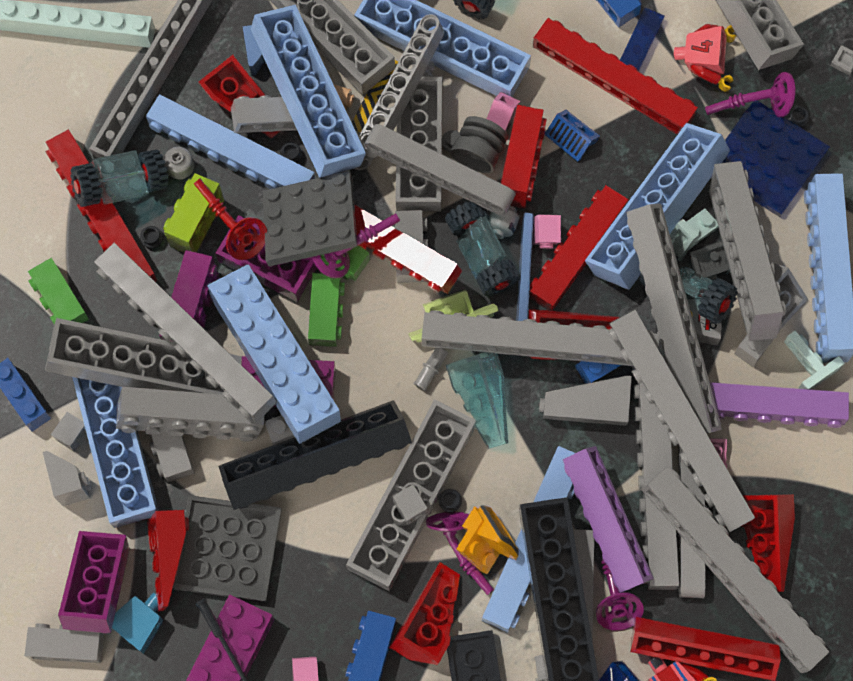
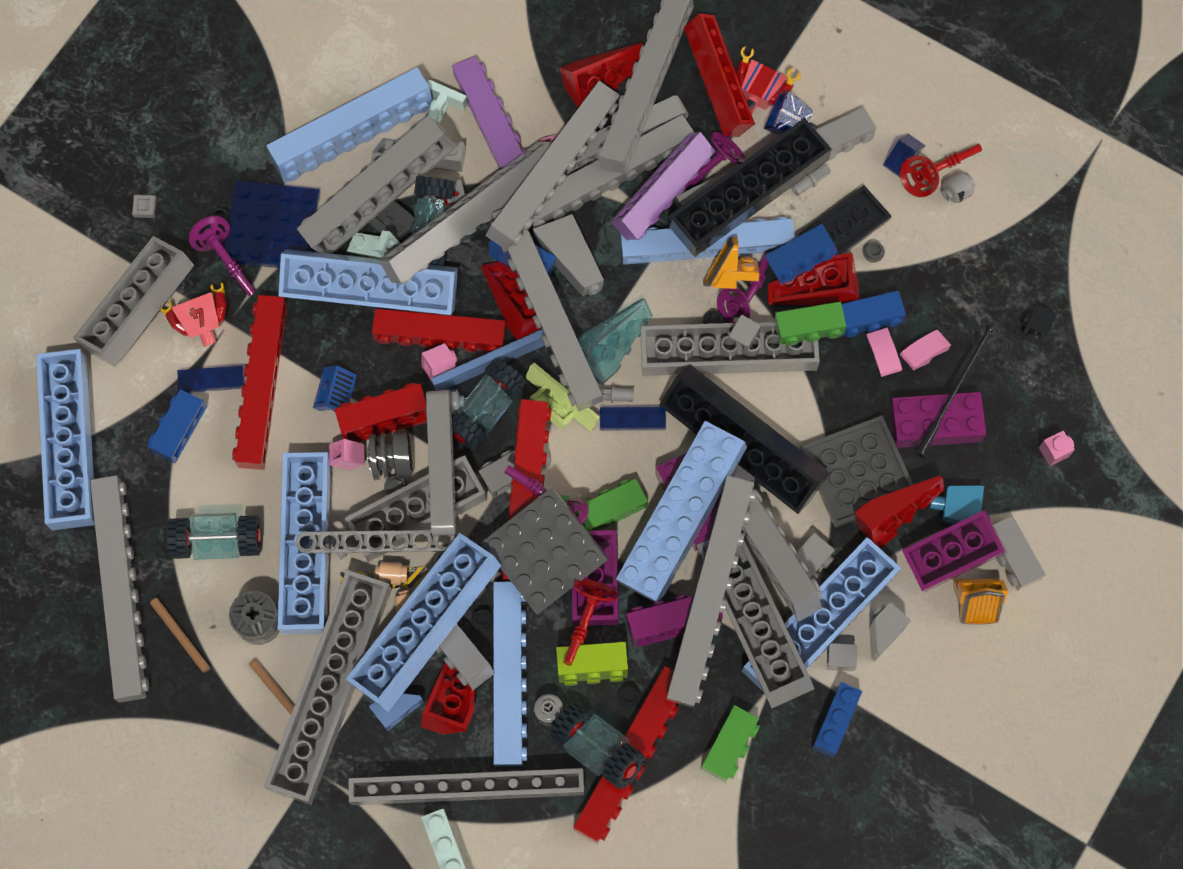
camera: 120 degrees left, 0 degrees up
(43, 585) = (980, 599): none -> light orange piece
(326, 641) = (884, 352): none -> bright pink slope
(371, 97) = (392, 573): none -> light nougat brick
(384, 572) = (810, 323): none -> bright green brick
(398, 373) = (632, 418): none -> clear blue tile
(465, 615) = (801, 254): none -> blue brick

